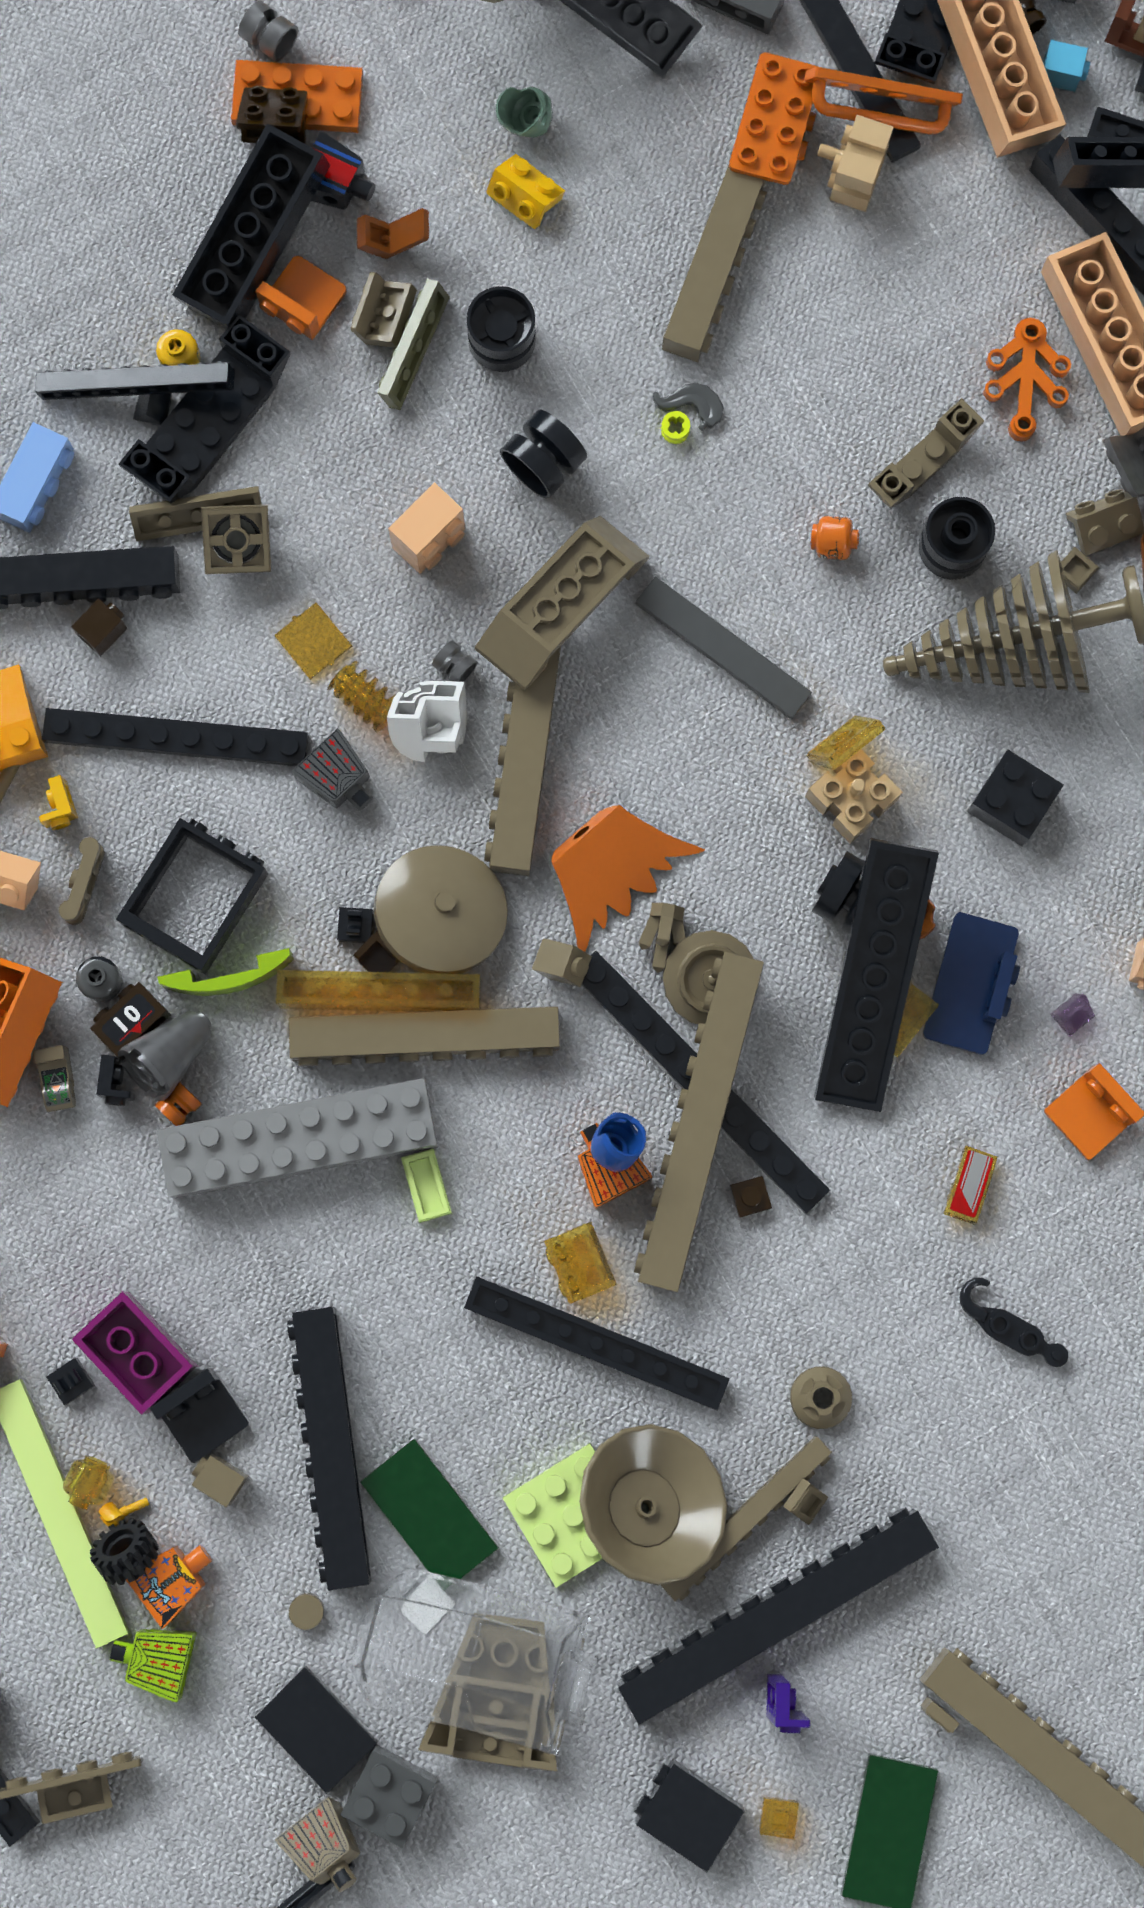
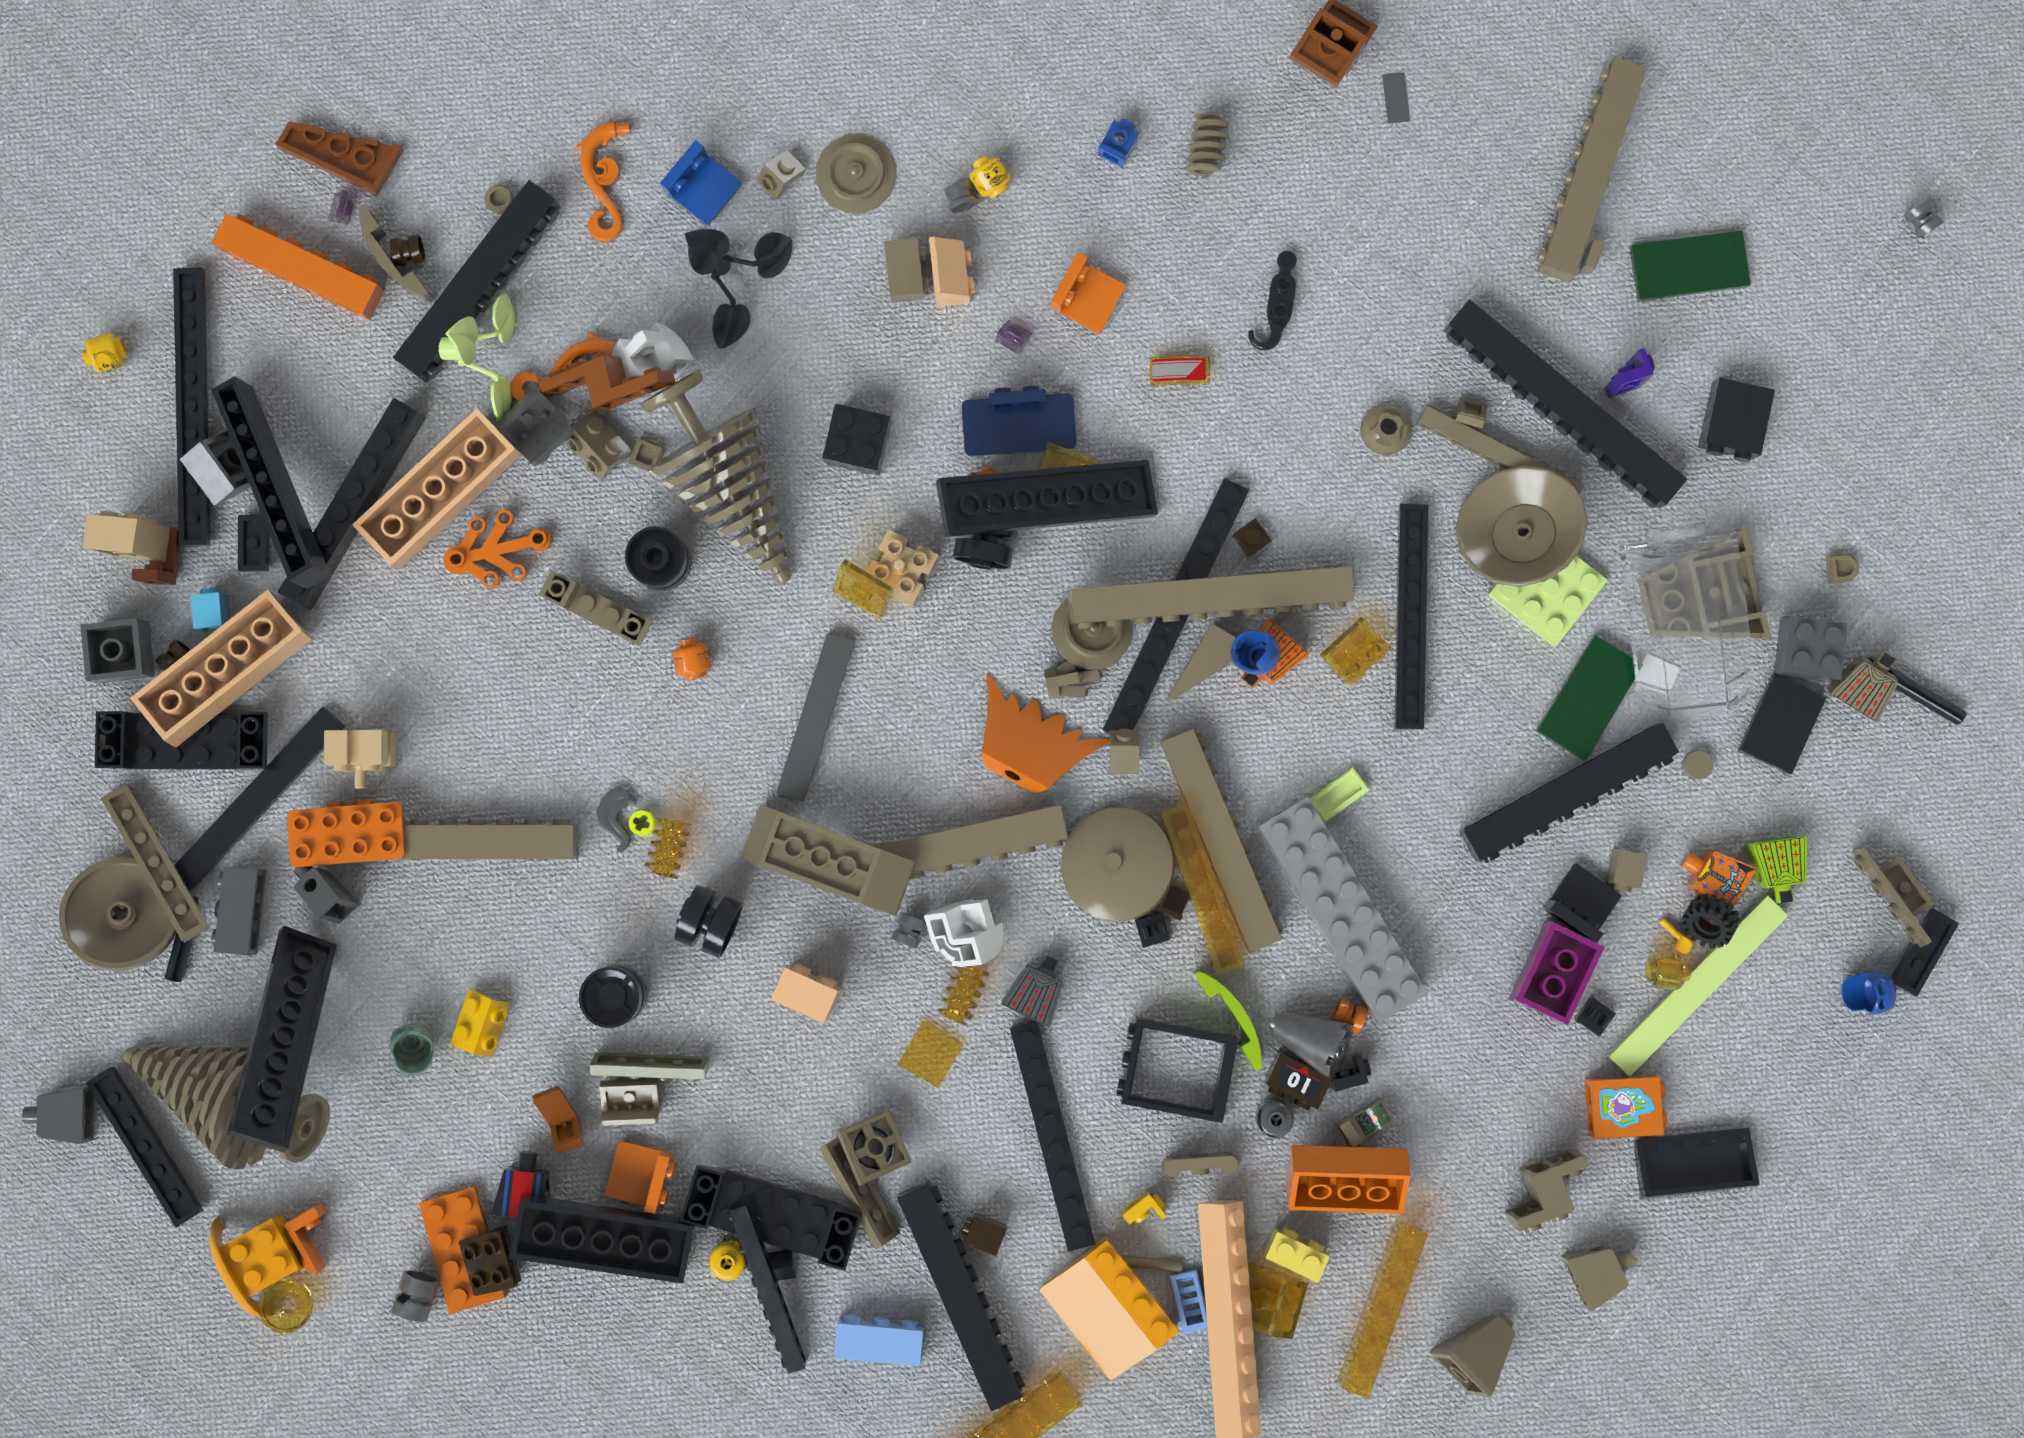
camera: 105 degrees left, 5 degrees up
(469, 1873) = (1841, 568): none -> dark tan tile
(629, 1089) = (1208, 659): none -> dark tan slope
(639, 442) = (667, 847): none -> clear yellow piece
(719, 78) = (324, 894): none -> dark grey torso
(778, 1817) = (1711, 352): clear yellow tile -> none
(827, 77) = (314, 747): orange piece -> none

